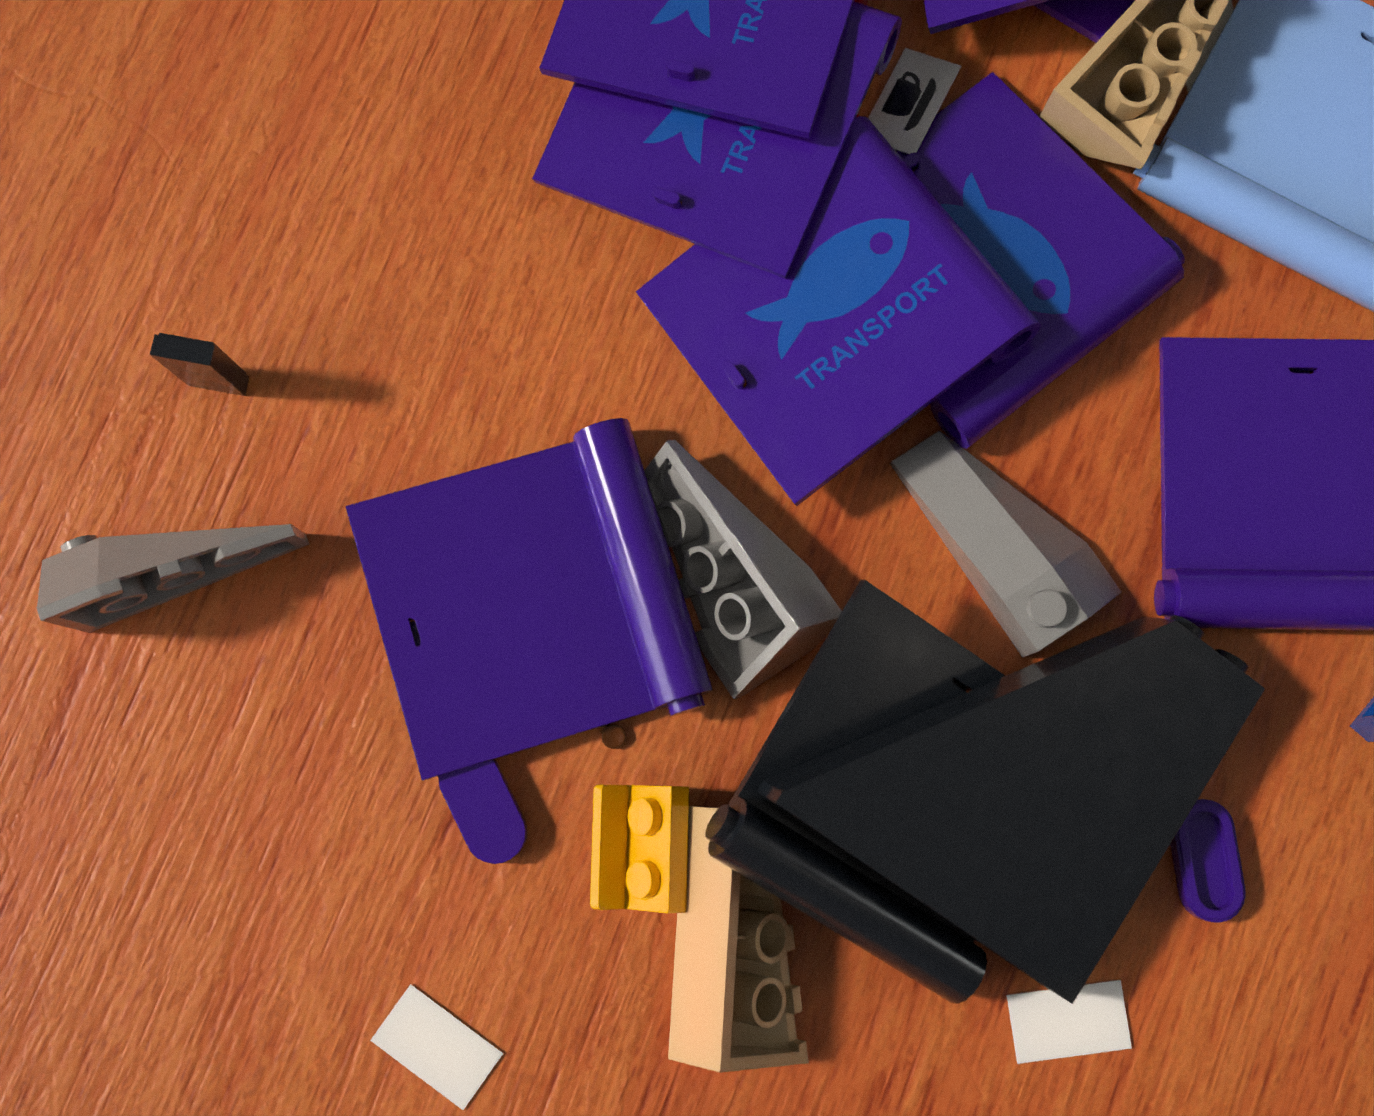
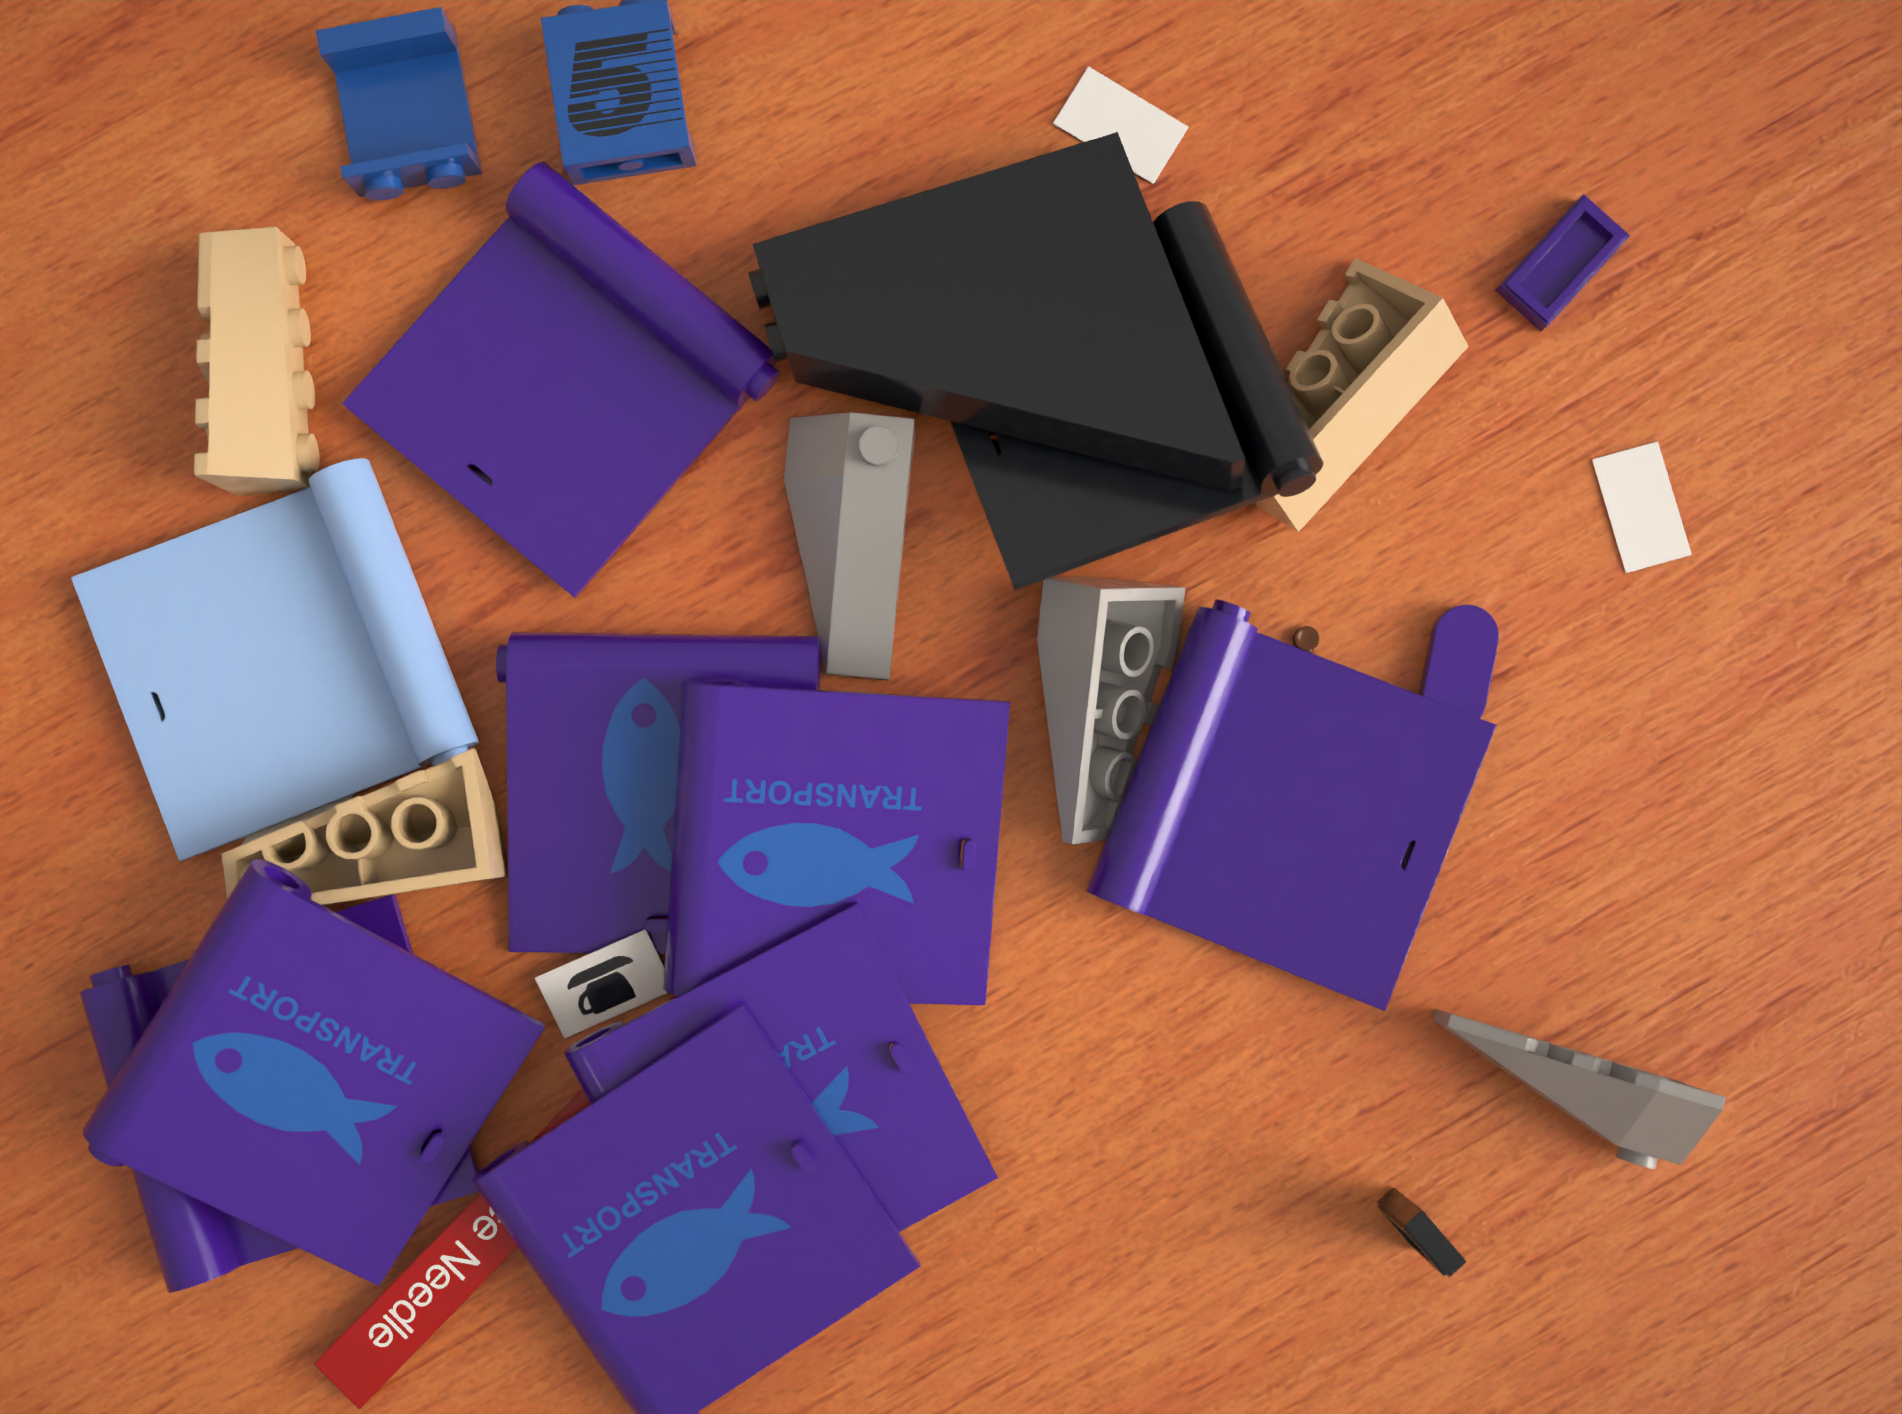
camera: 145 degrees left, 5 degrees up
(639, 848) = (1360, 528): yellow bracket -> none
(1208, 863) = (907, 152): dark purple tile -> none

